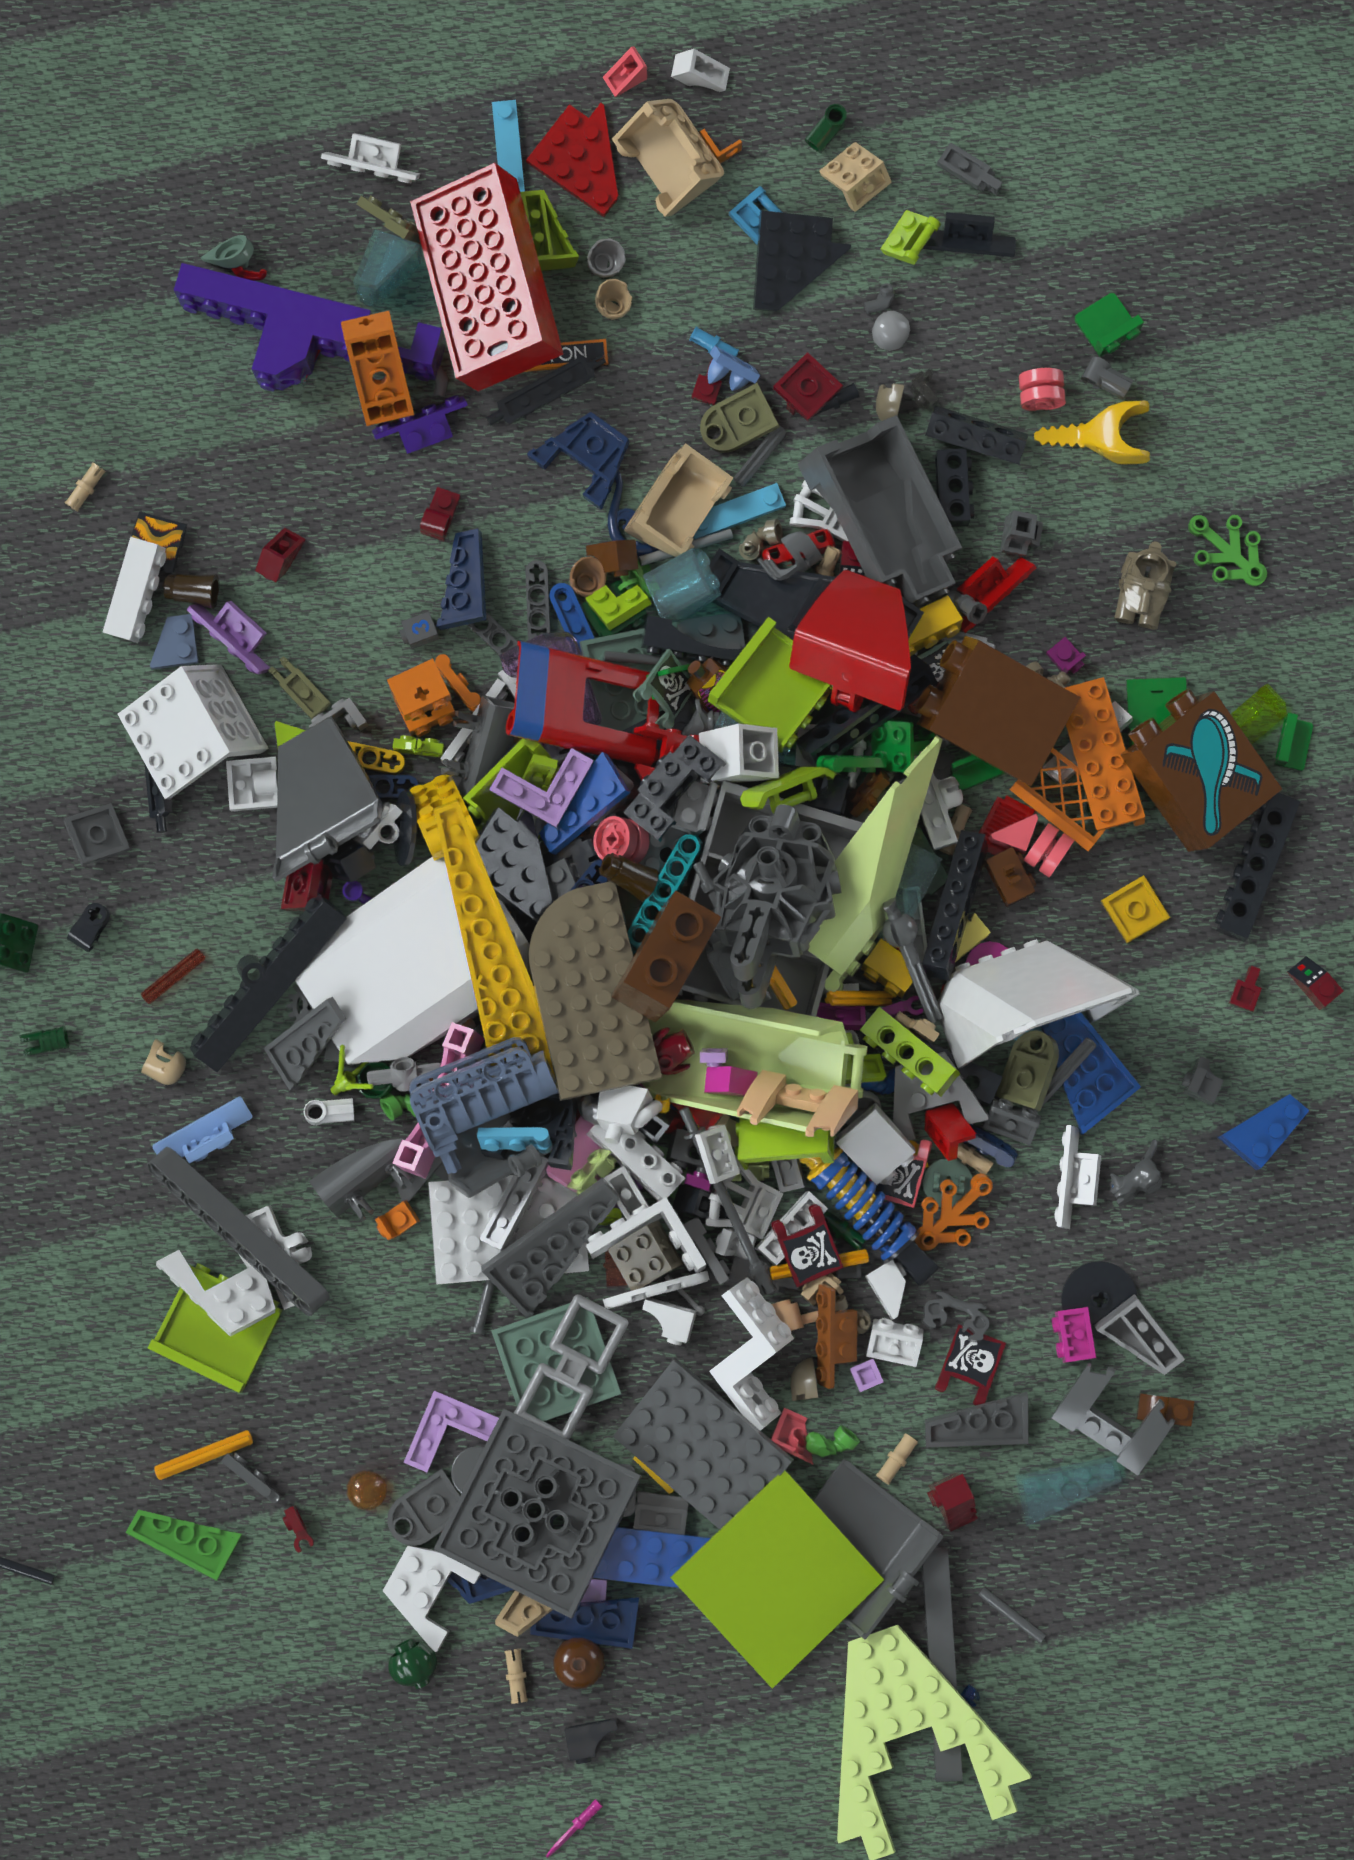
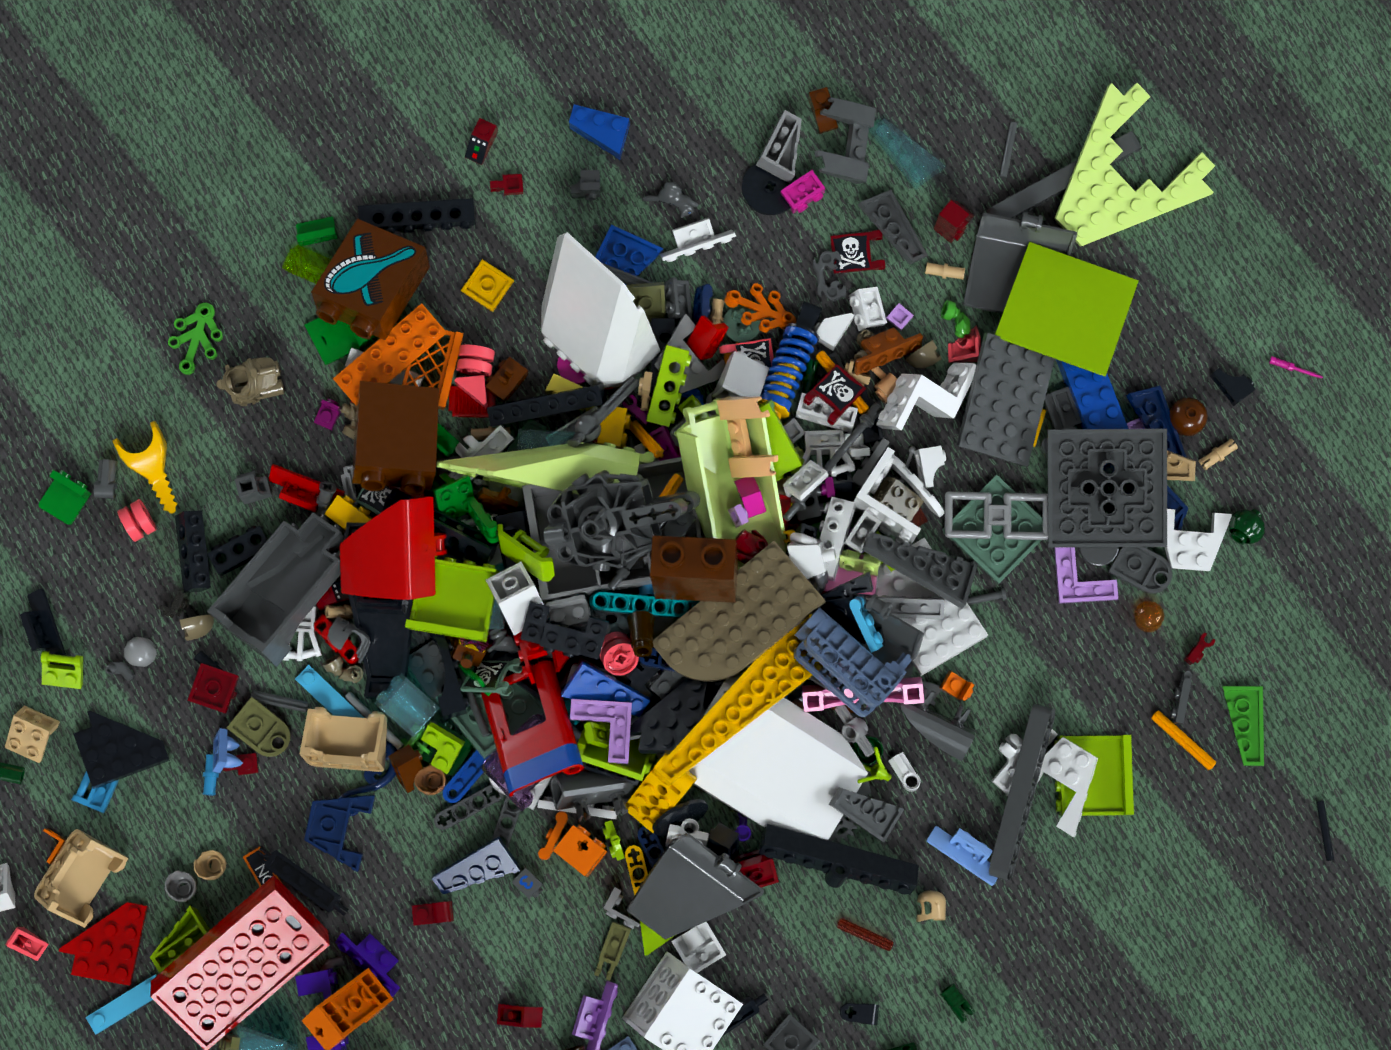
camera: 115 degrees left, 0 degrees up
(394, 1105) = (878, 729): bright green arm -> none
(970, 1694) = (1074, 152): hinge -> none

